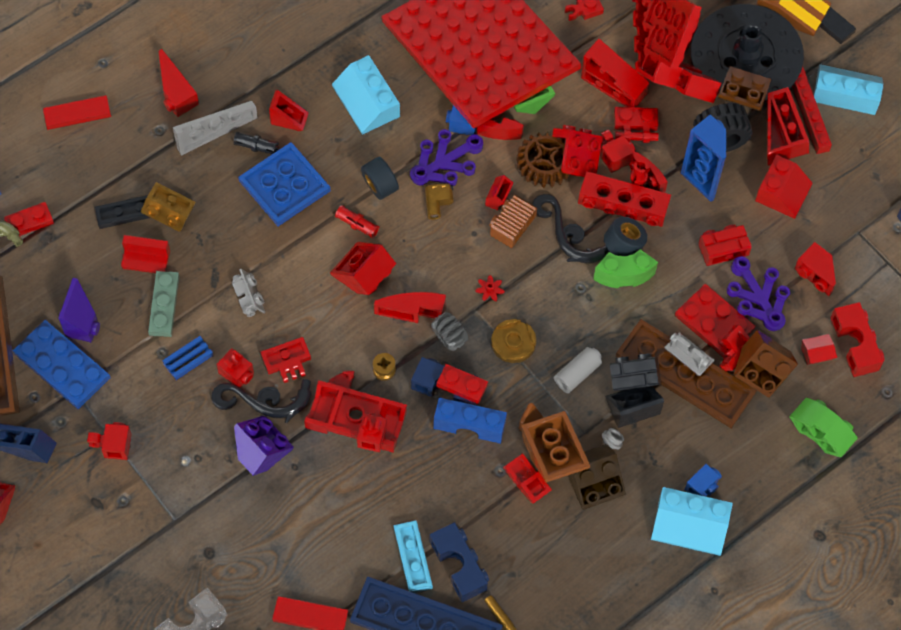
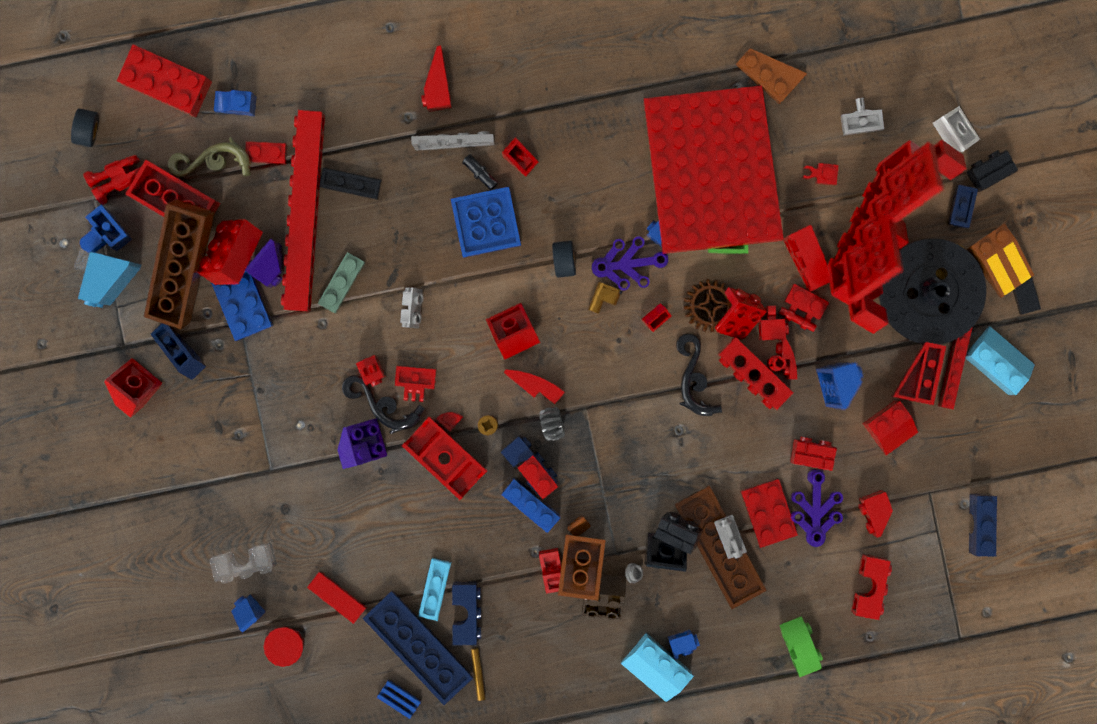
camera: 25 degrees right, 25 degrees up
(34, 312) = (229, 252): none -> red piece
(76, 112) = (347, 68): red tile -> none
(94, 254) = (304, 211): none -> red brick
(114, 442) = (250, 386): red brick -> none
(145, 254) = (344, 233): red panel -> none
(167, 206) = (381, 199): pearl gold bracket -> none
(183, 351) = (356, 337): blue tile -> none
(357, 221) = (528, 285): red pin -> none
(366, 95) = (592, 171): medium azure slope -> none
(372, 432) = (447, 485): red brick -> none
(489, 291) = (600, 395): red plant -> none
(508, 129) = (694, 261): red slope -> none
(512, 221) = (653, 349): dark orange brick -> none
(513, 341) = (601, 451): pearl gold tile -> none
(578, 369) = (638, 503): light grey brick -> none
(625, 237) = (736, 411): black wheel -> none
(625, 271) = (720, 439): bright green brick -> none
(734, 120) = (870, 355): black tyre -> none
(734, 342) = (772, 554): red hinge -> none
(744, 88) = (906, 334): reddish brown slope -> none
(764, 363) = (785, 574): reddish brown slope -> none
(818, 349) = (835, 580): red piece -> none

